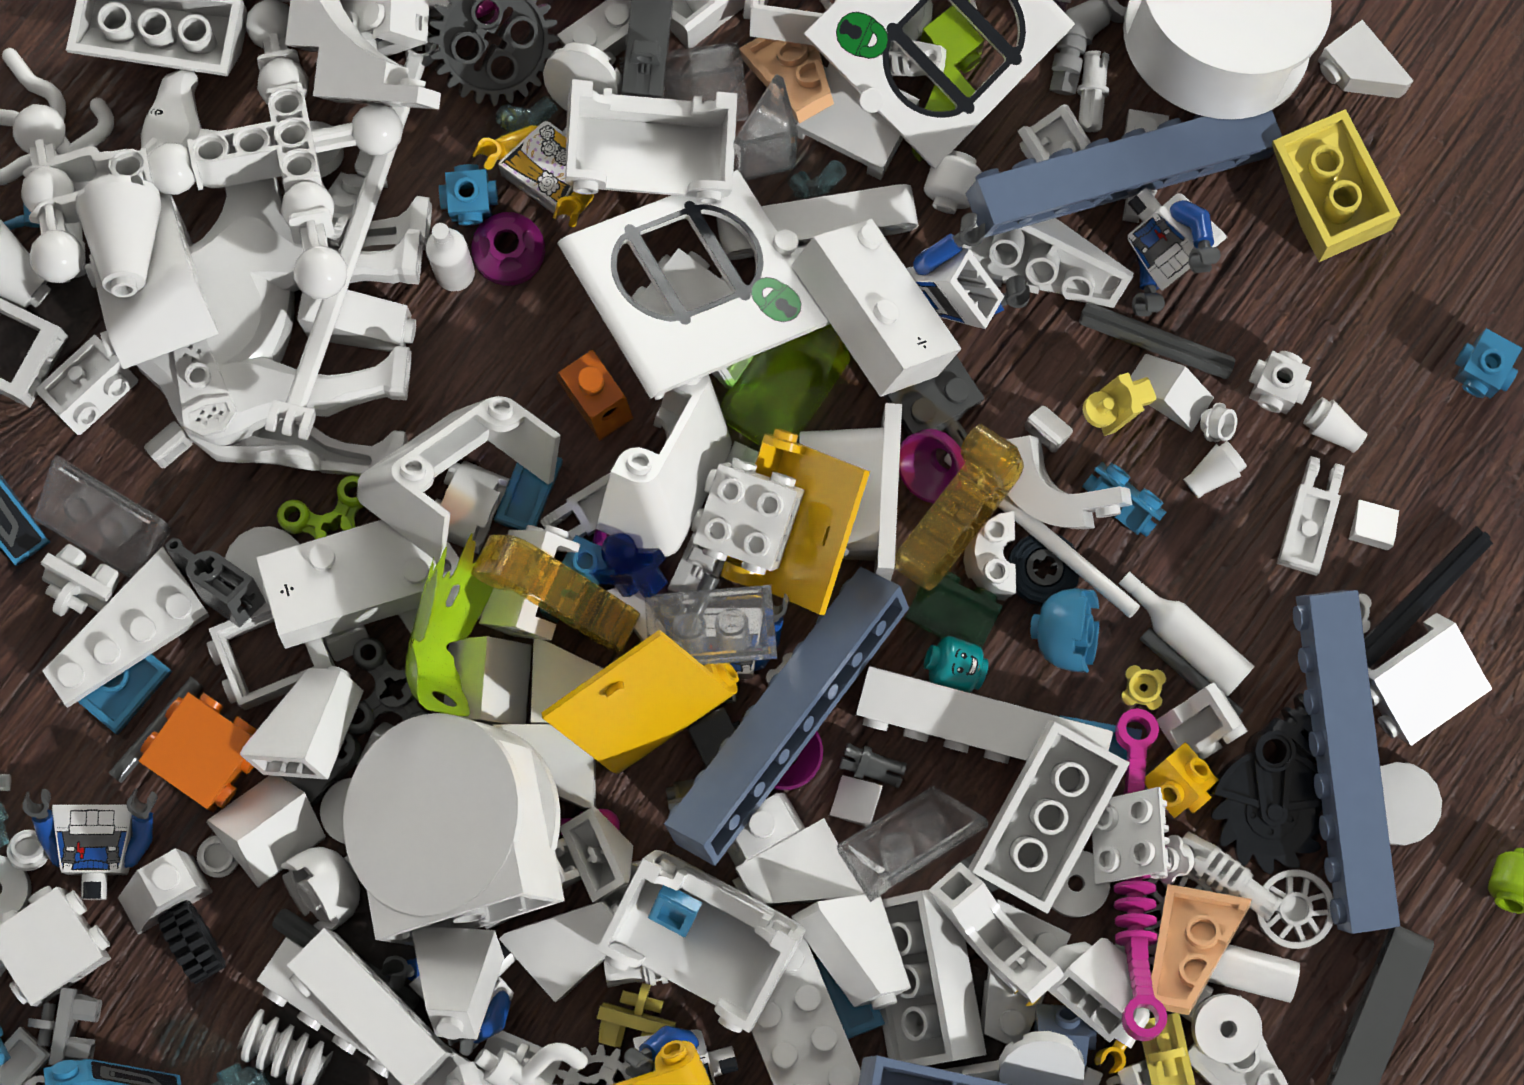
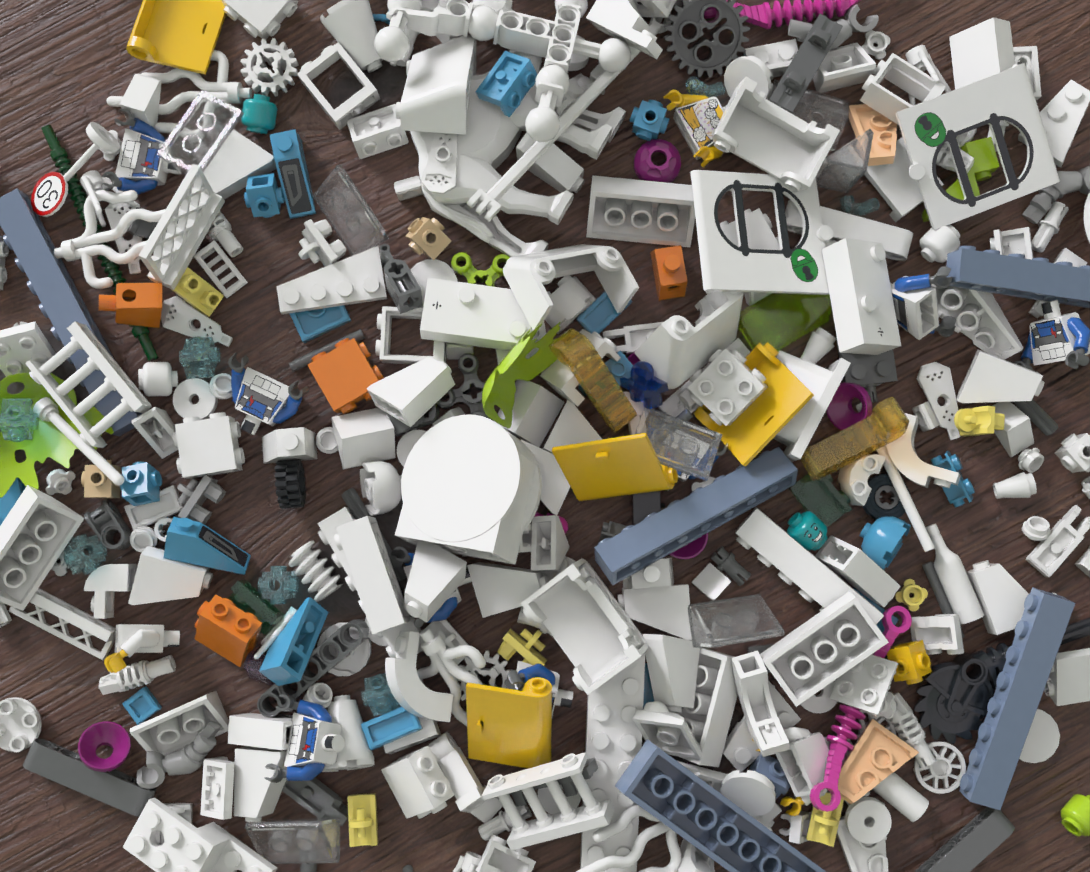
camera: 30 degrees right, 5 degrees up
(120, 230) = (436, 44): white cone -> none
(228, 502) = (435, 241): none -> tan brick
(244, 234) = (508, 82): none -> dark azure bracket
(450, 258) = (621, 152): white piece -> none
(515, 328) = (641, 211): none -> white slope
(675, 910) = (577, 600): dark azure tile -> none
(851, 401) = (818, 346): none -> white cone
(887, 1032) = (667, 730): none -> white slope
(1046, 382) = (939, 387): none -> white piece
(1052, 687) = (858, 570): none -> white slope
(1119, 334) = (998, 381): none -> white slope
(1259, 631) = (998, 595): none -> white slope
(1271, 514) = (1036, 528): none -> white plate

